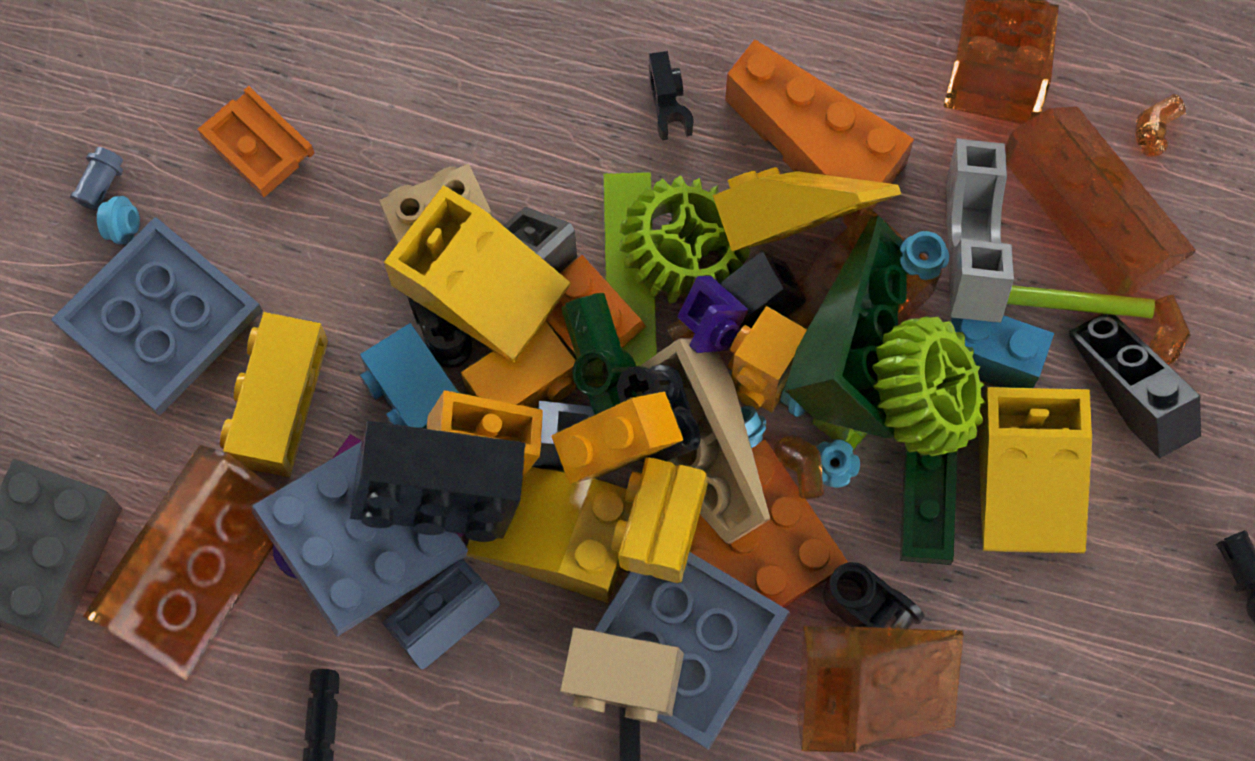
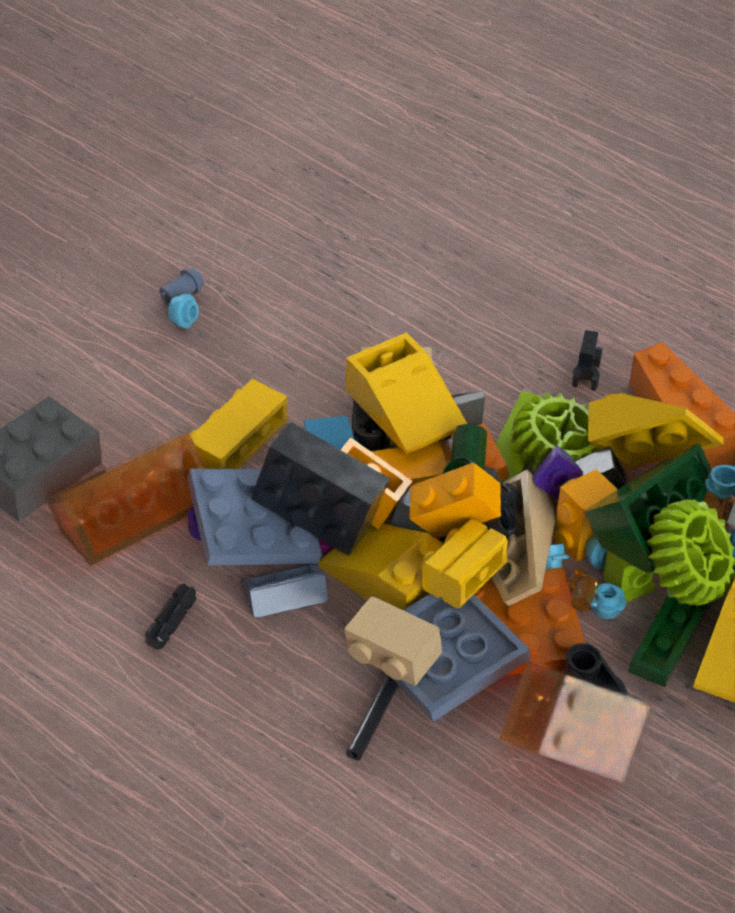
camera: 20 degrees right, 25 degrees down
(157, 315) = (180, 367): sand blue plate -> none
(256, 141) = (295, 300): orange plate -> none

